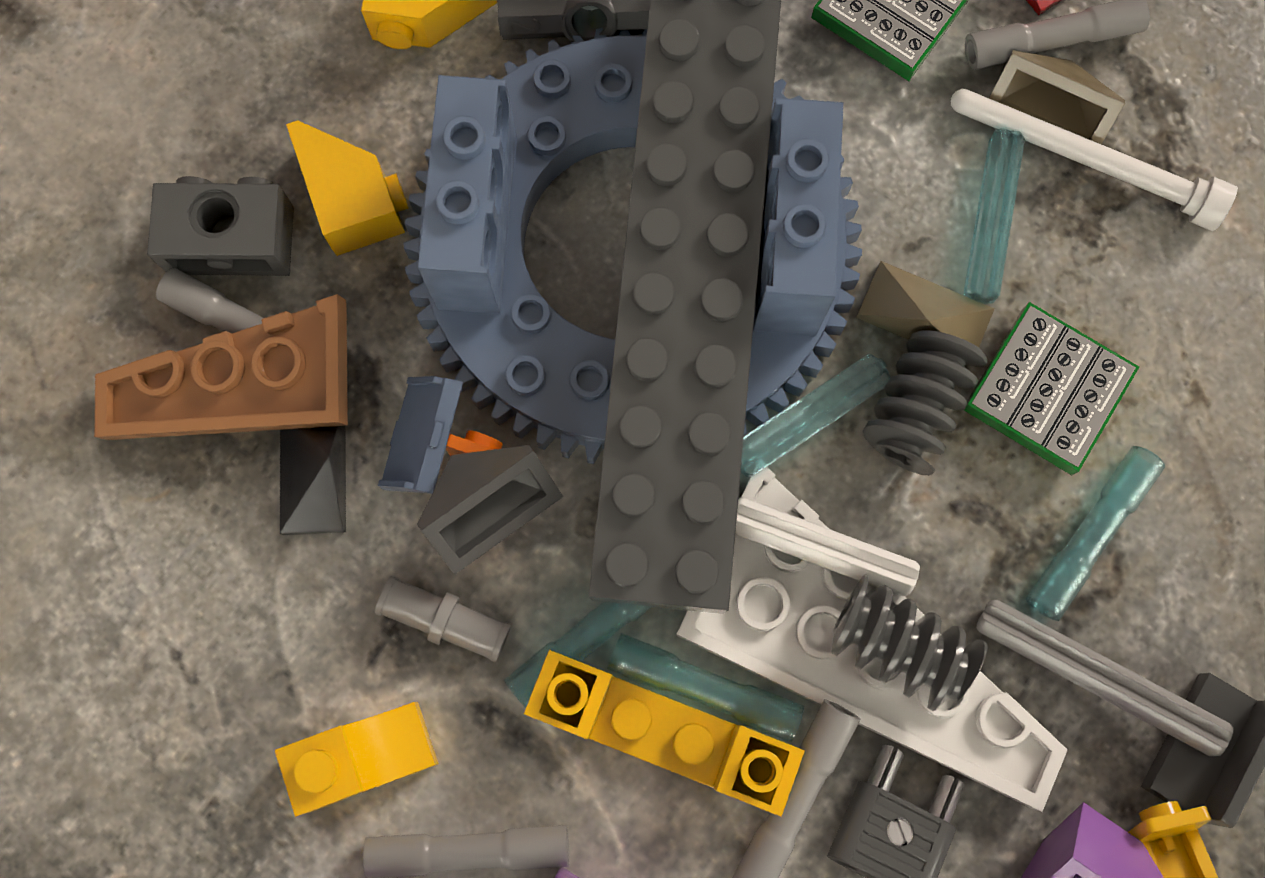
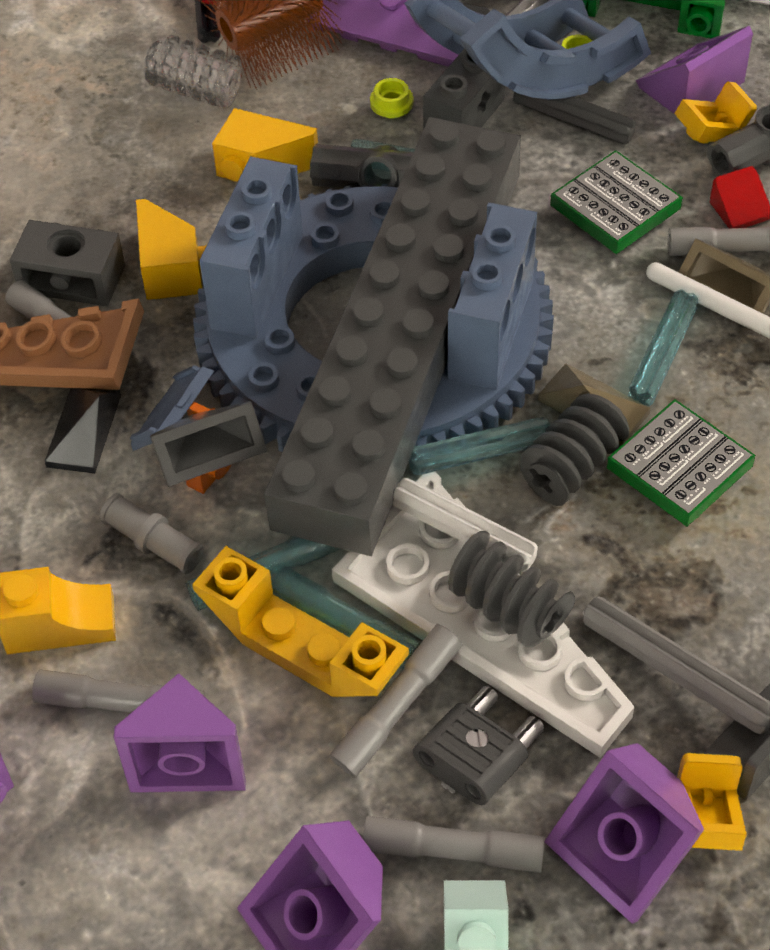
camera: 15 degrees right, 25 degrees down
(1073, 564) = (673, 587): clear light blue piece -> none

